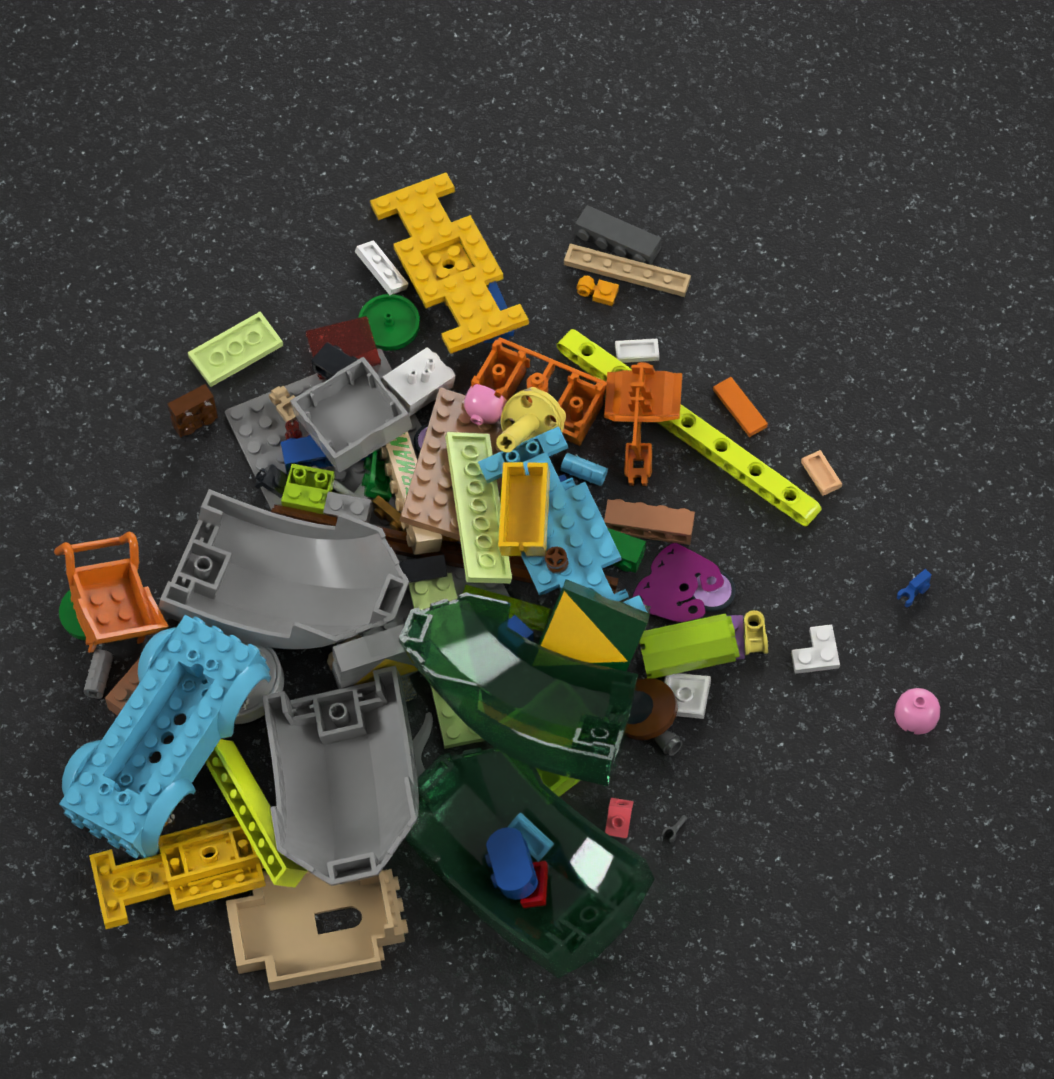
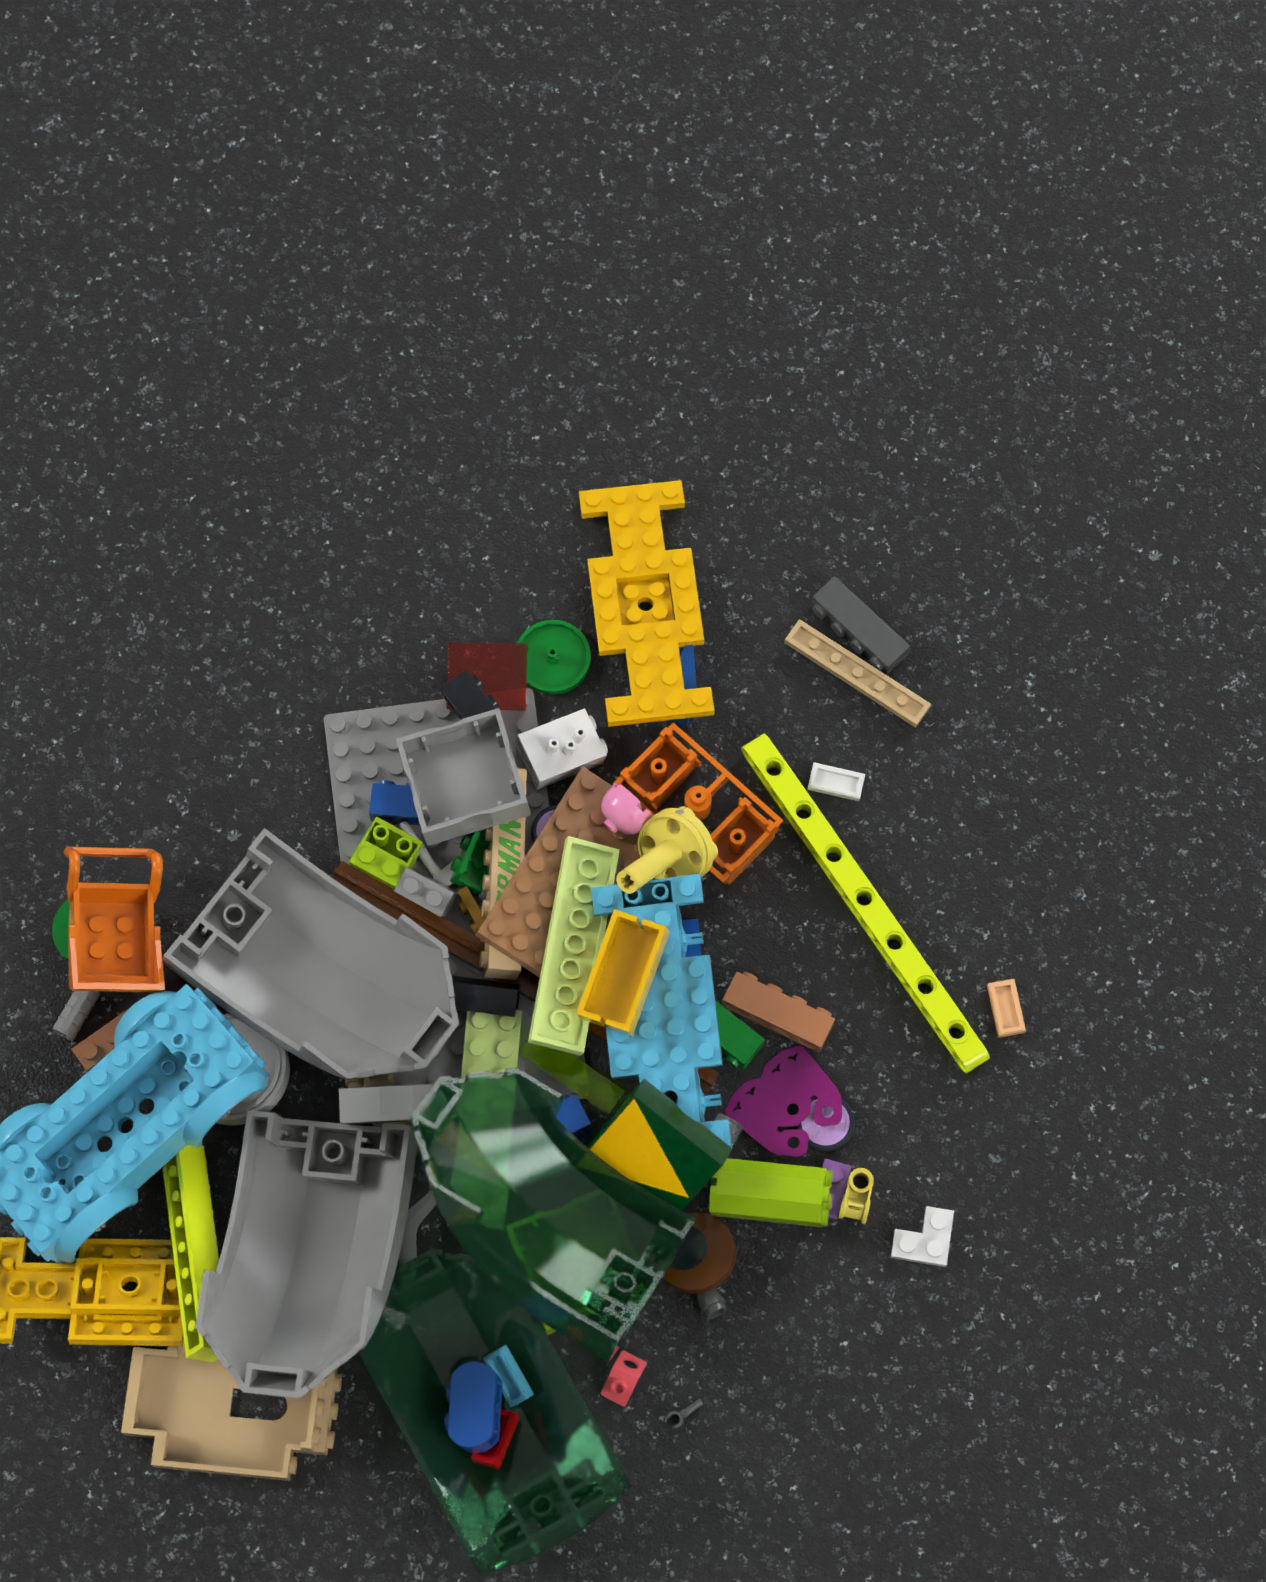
camera: 15 degrees right, 10 degrees up
(192, 410) = (284, 710): reddish brown piece -> none
(235, 349) = (360, 640): yellowish green plate -> none
(272, 479) = (349, 826): black bracket -> none
(279, 397) = (392, 719): tan plate -> none
(292, 431) = (394, 768): clear red pin -> none
(381, 267) = (565, 584): white plate -> none
(556, 554) = (637, 1044): reddish brown wheel -> none
(584, 469) = (723, 920): medium azure axle -> none
(602, 293) = (820, 694): light orange plate -> none
(642, 397) = (817, 858): orange piece -> none
(690, 693) = (756, 1248): white plate -> none
(740, 406) = (936, 892): orange tile -> none
(917, 711) = (1020, 1353): bright pink cylinder -> none
(919, 584) = (1074, 1192): blue plate -> none

